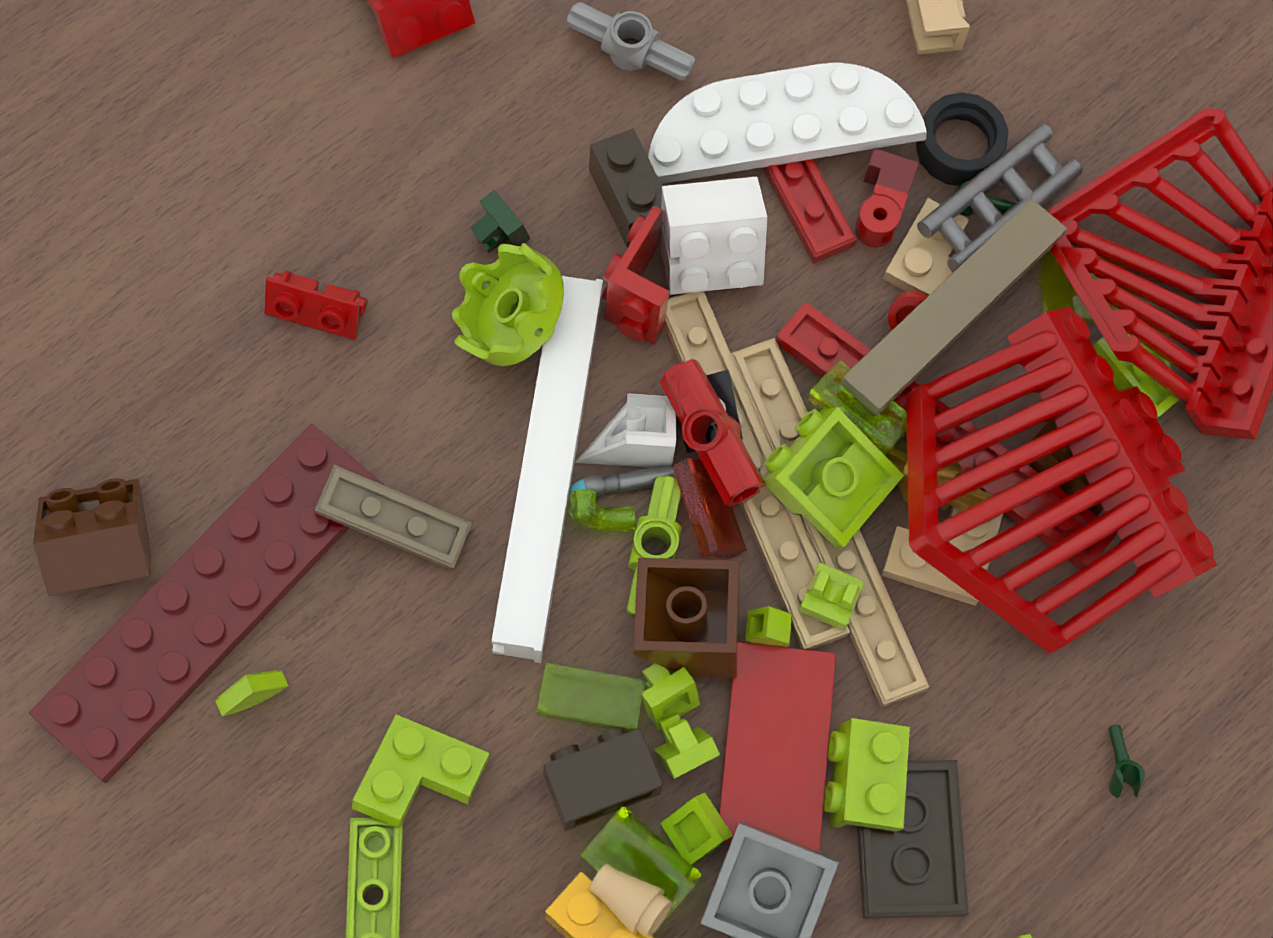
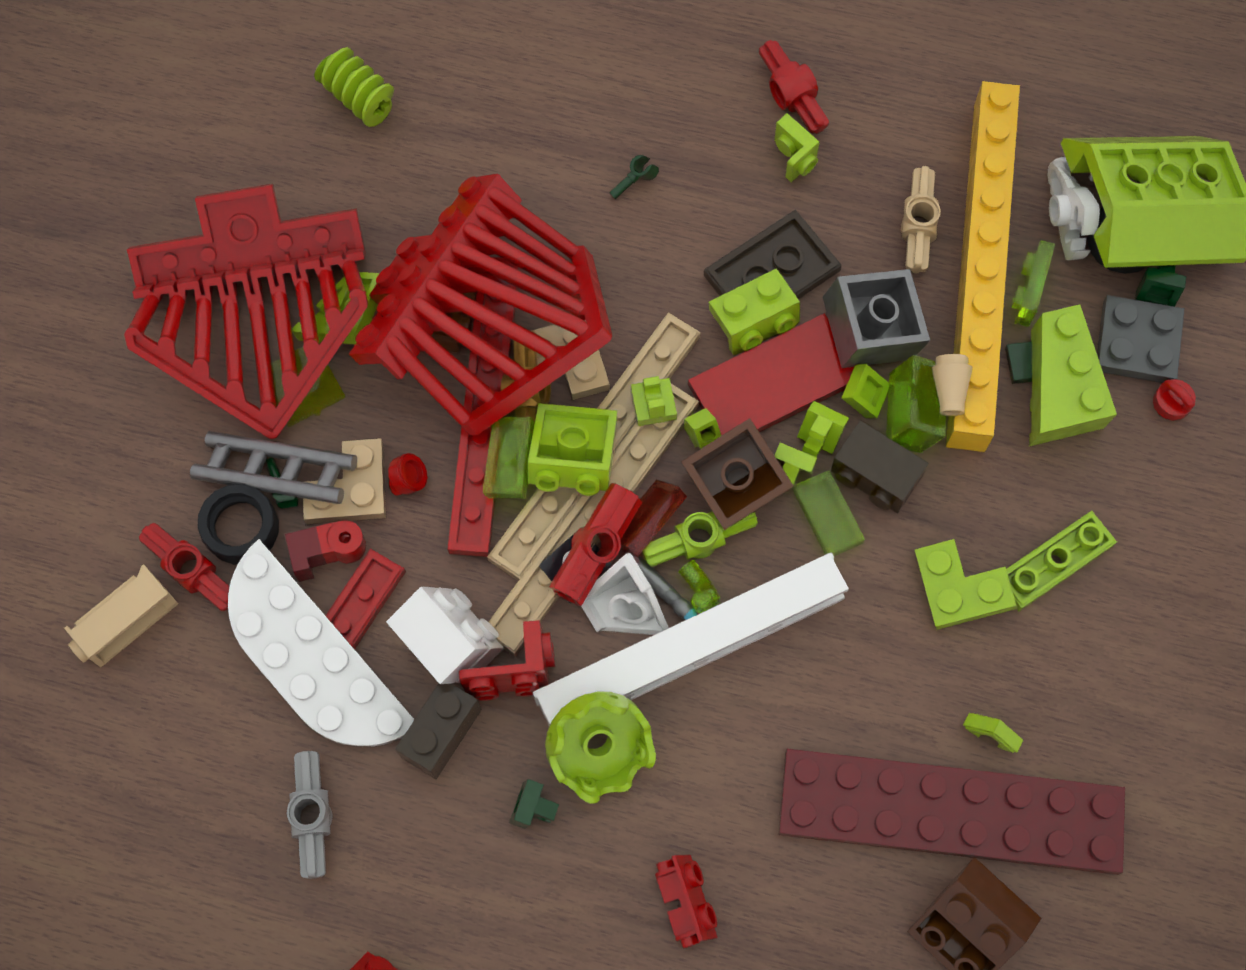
camera: 115 degrees left, 0 degrees up
(392, 517) = (808, 723): dark tan tile -> none
(953, 307) = (390, 439): dark tan tile -> none
(957, 60) = (175, 554): none -> red axle

